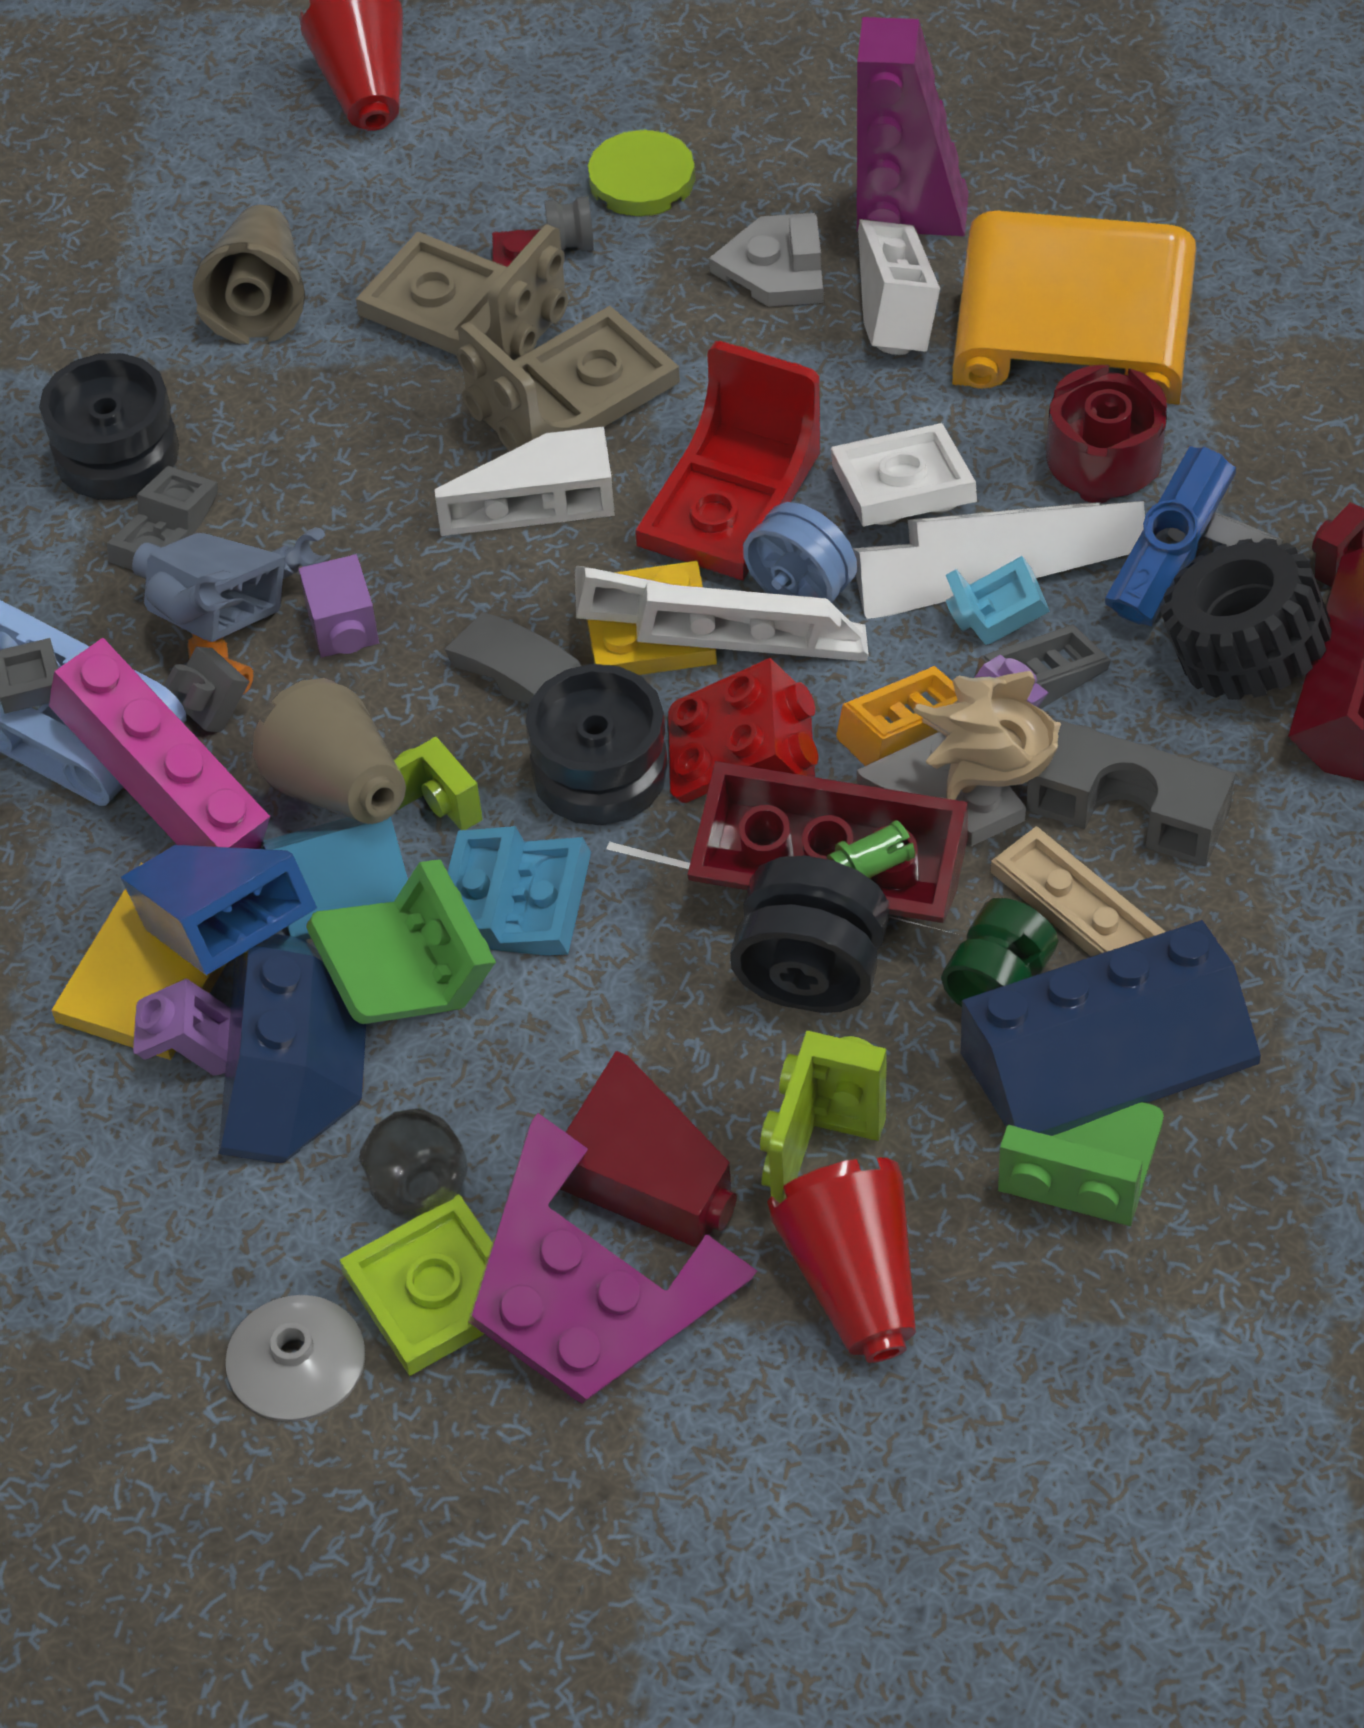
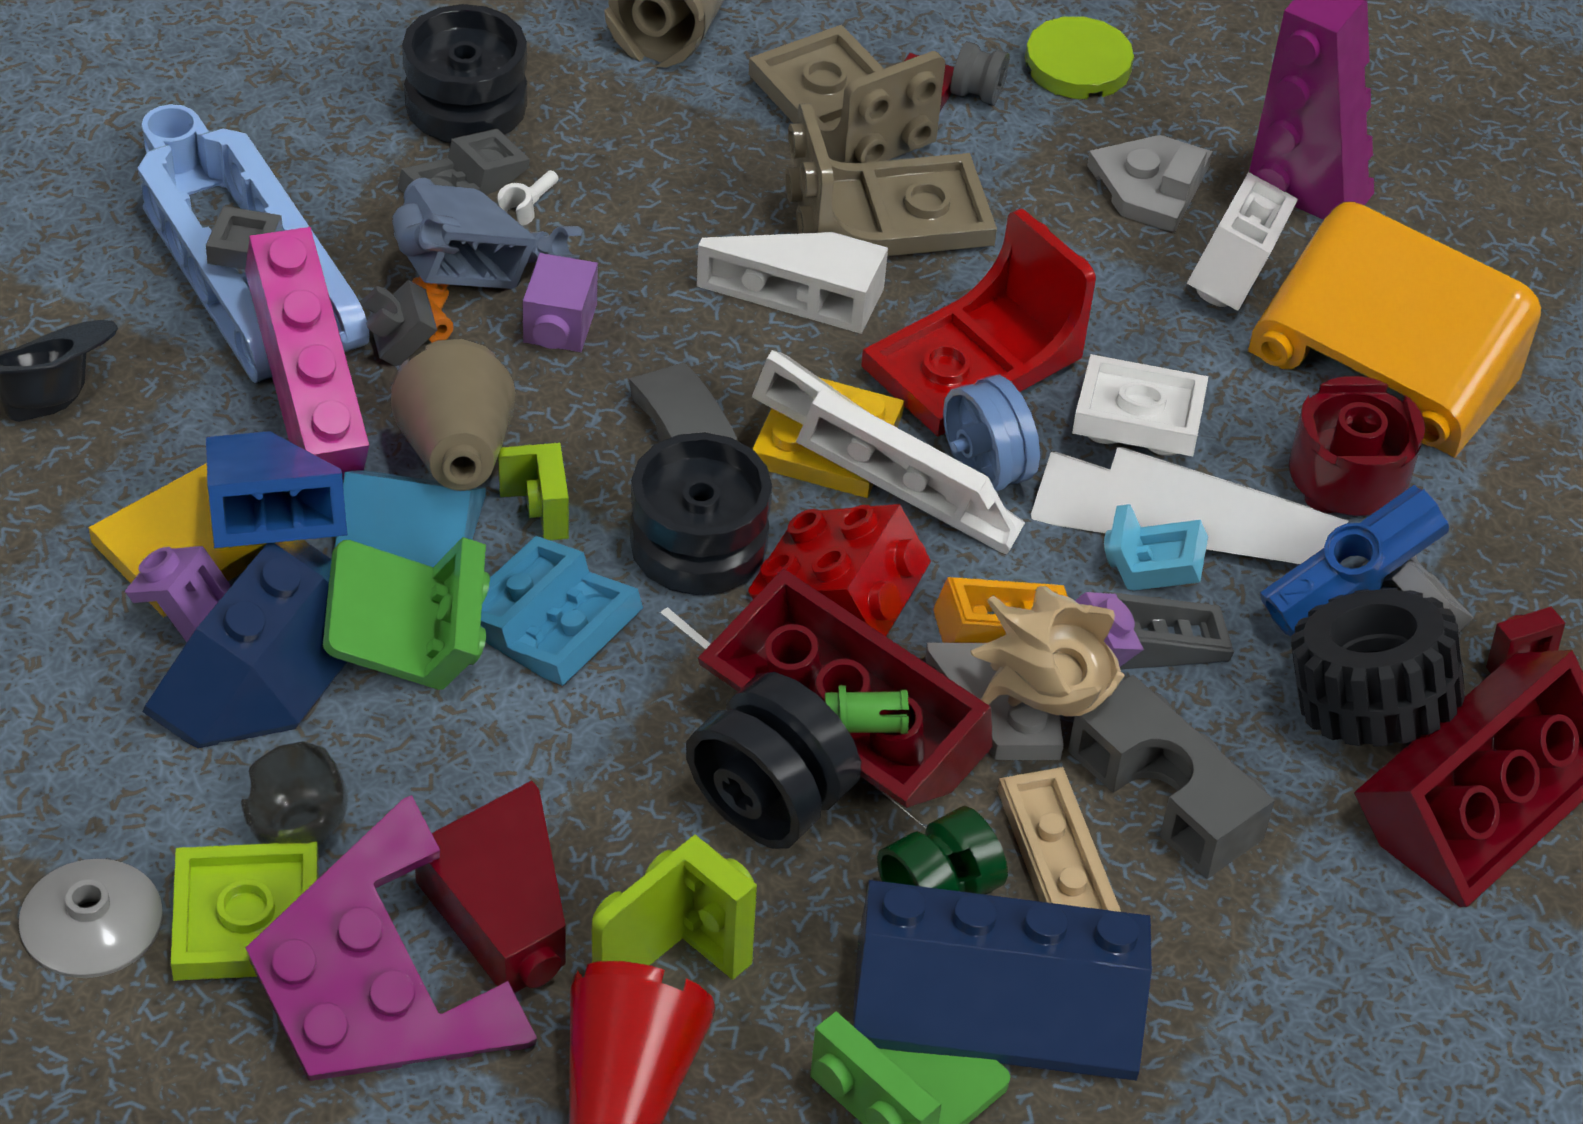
camera: 20 degrees right, 5 degrees down
(235, 518) = (524, 197): none -> white hand

